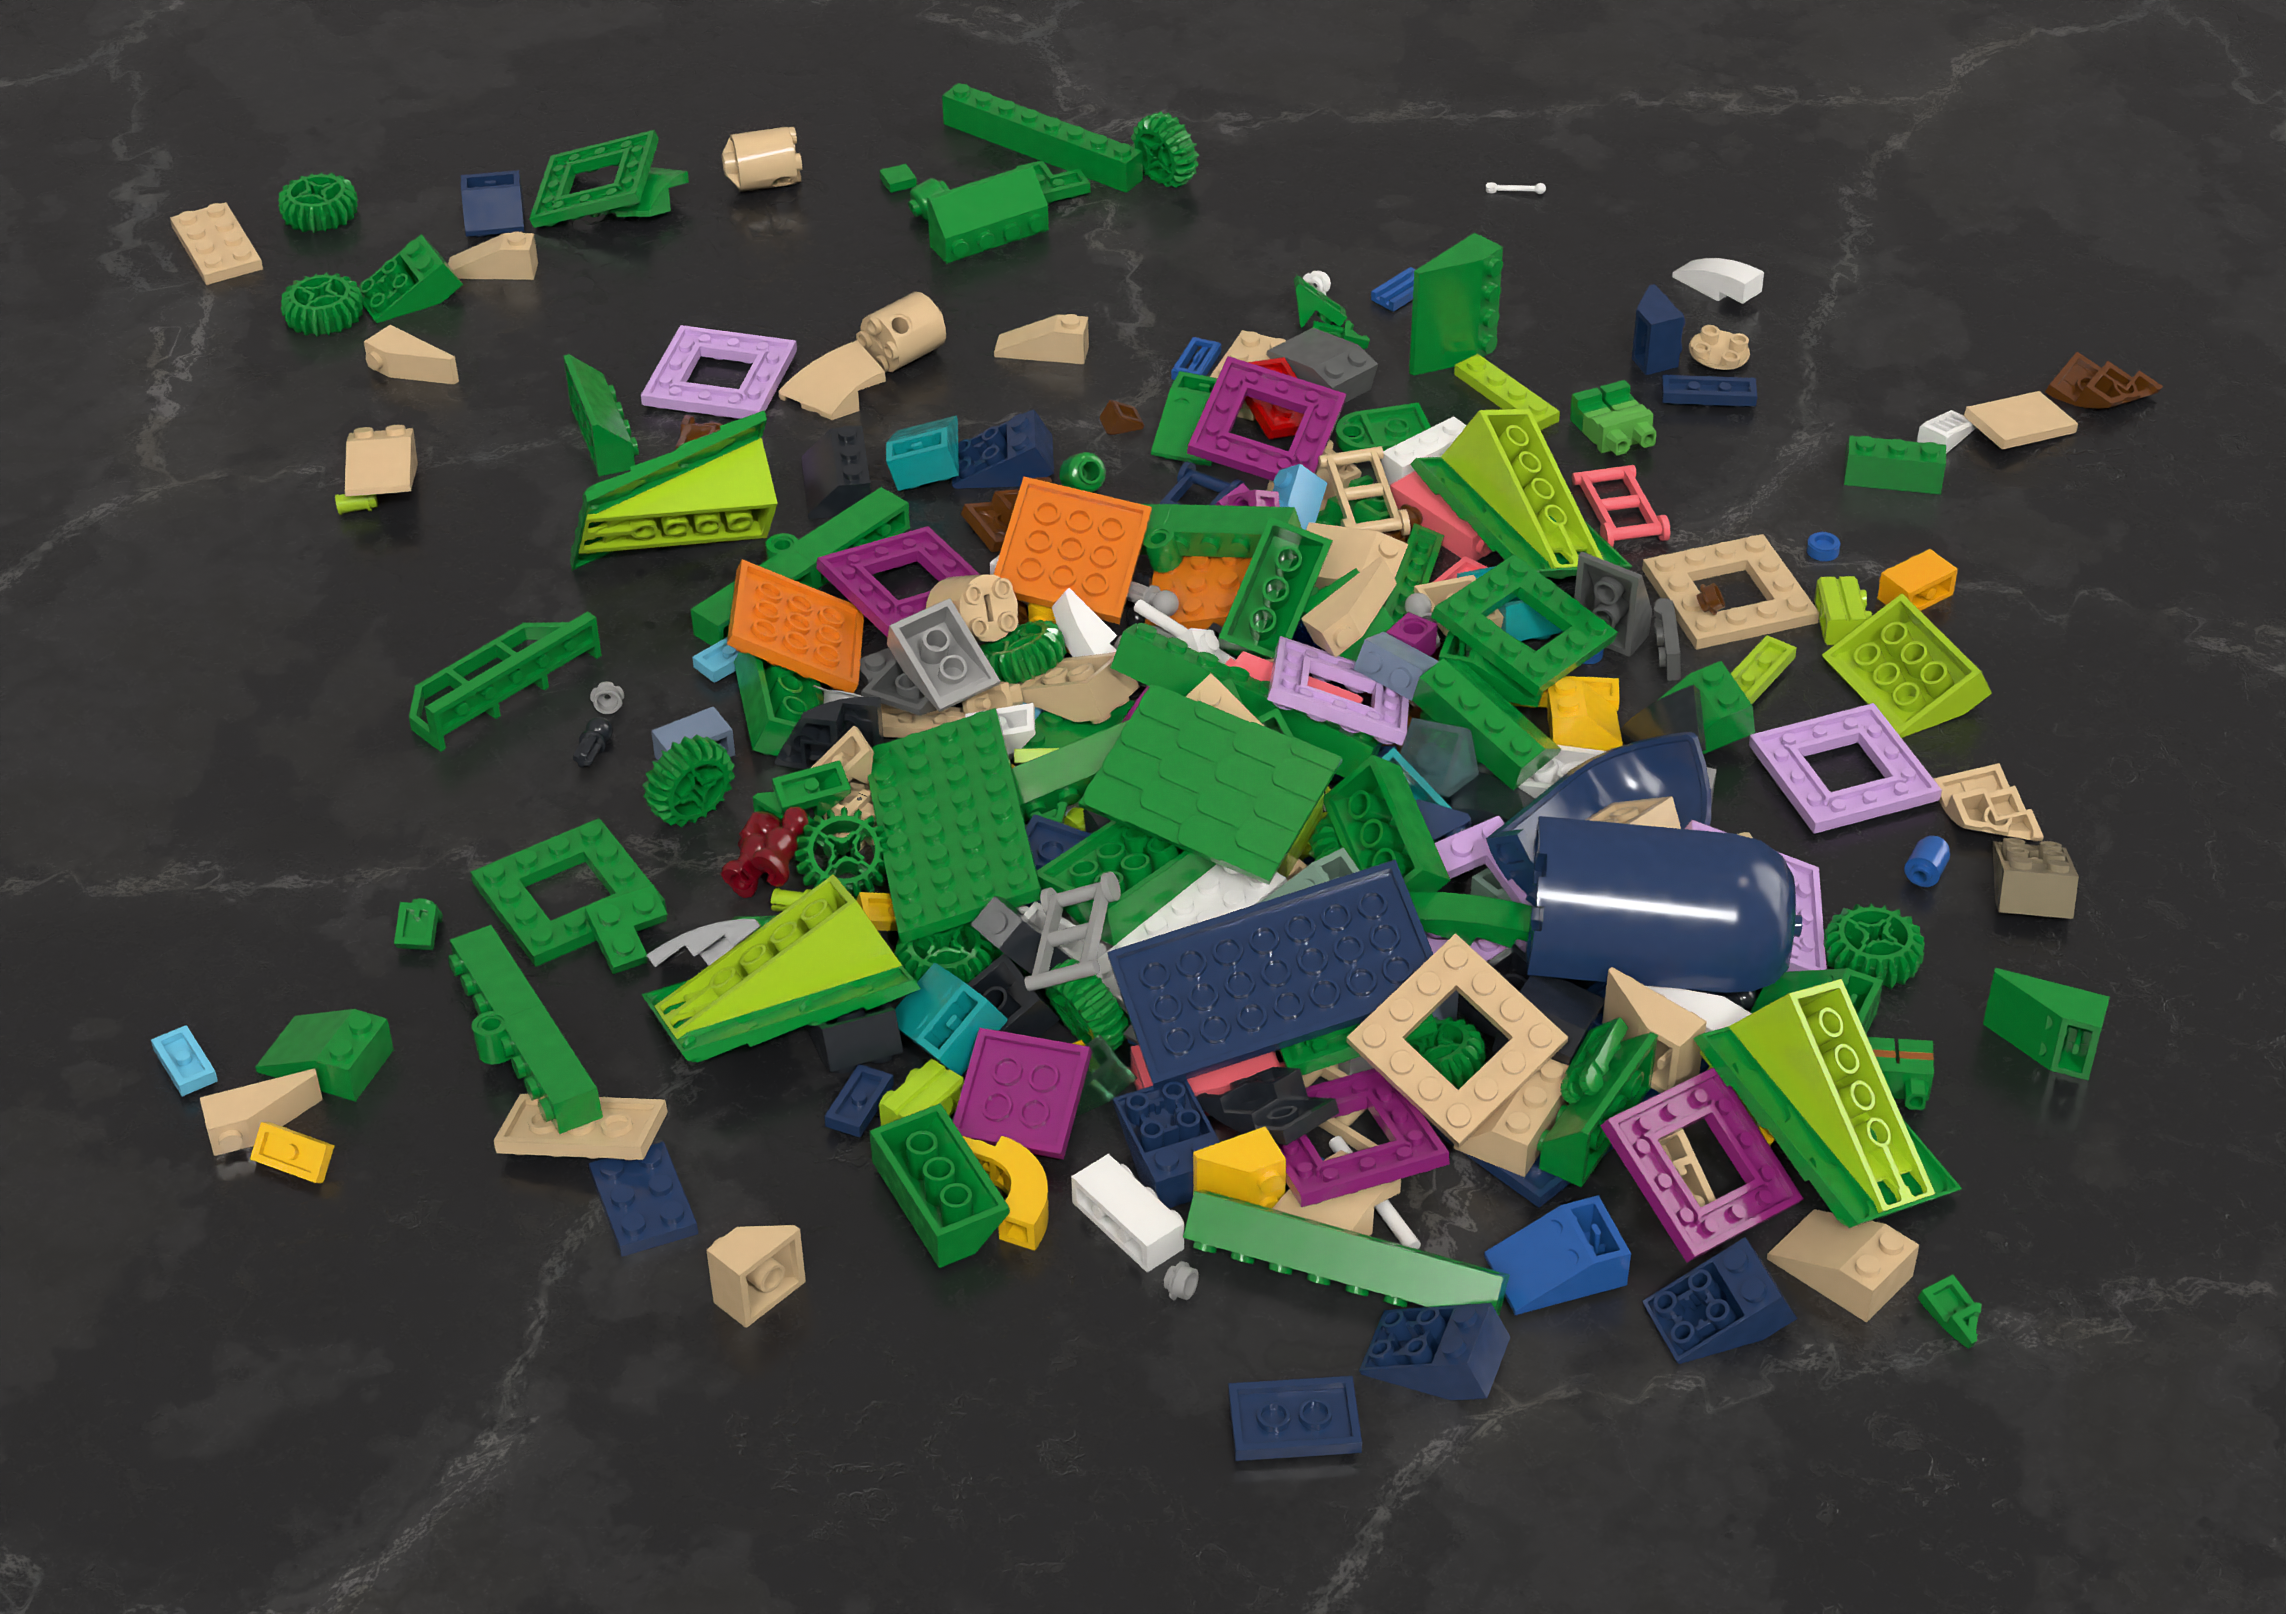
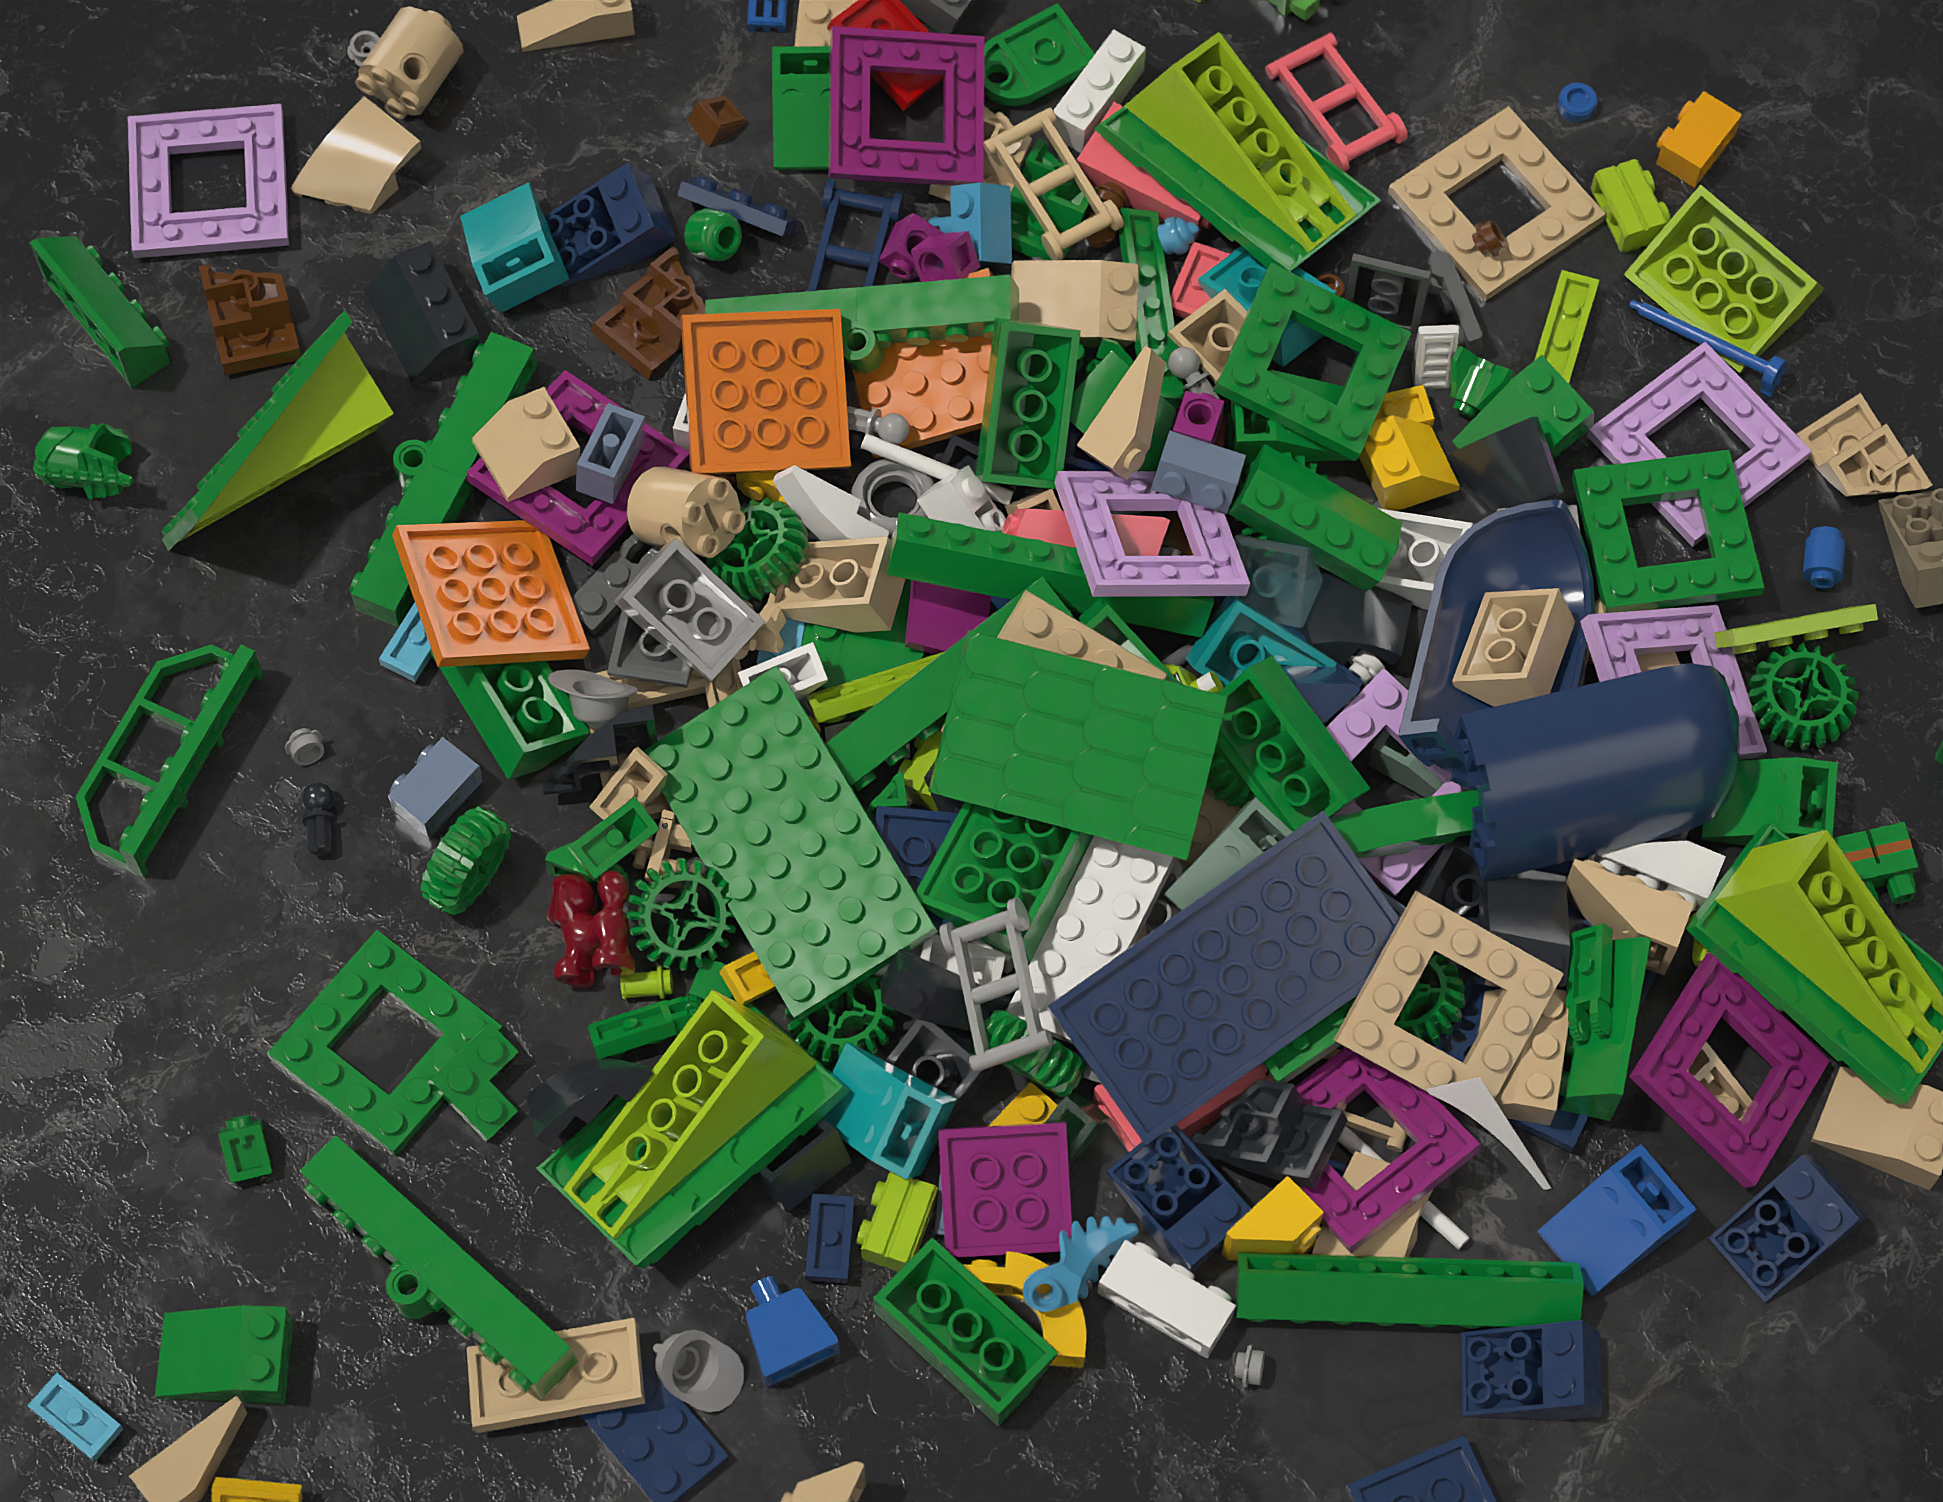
camera: 20 degrees left, 25 degrees up
(536, 494) = (69, 459): none -> green helmet
(702, 1153) = (699, 1370): none -> light grey piece
(789, 1153) = (787, 1332): none -> blue torso
(872, 548) = (527, 445): none -> tan slope
(931, 561) = (610, 453): none -> sand blue brick
(1054, 1158) = (1078, 1262): none -> dark azure plant
(1132, 474) = (738, 204): none -> dark blue plate
(1452, 549) = (1177, 235): none -> dark azure plate
(1454, 1115) = (1477, 1102): none -> white sticker
(1635, 678) = (1433, 356): none -> white slope
(1658, 679) = (1475, 382): none -> green brick
(1842, 784) = (1708, 476): none -> green plate
(1896, 894) = (1781, 631): none -> lime plate
(1924, 733) = (1771, 370): none -> blue piece

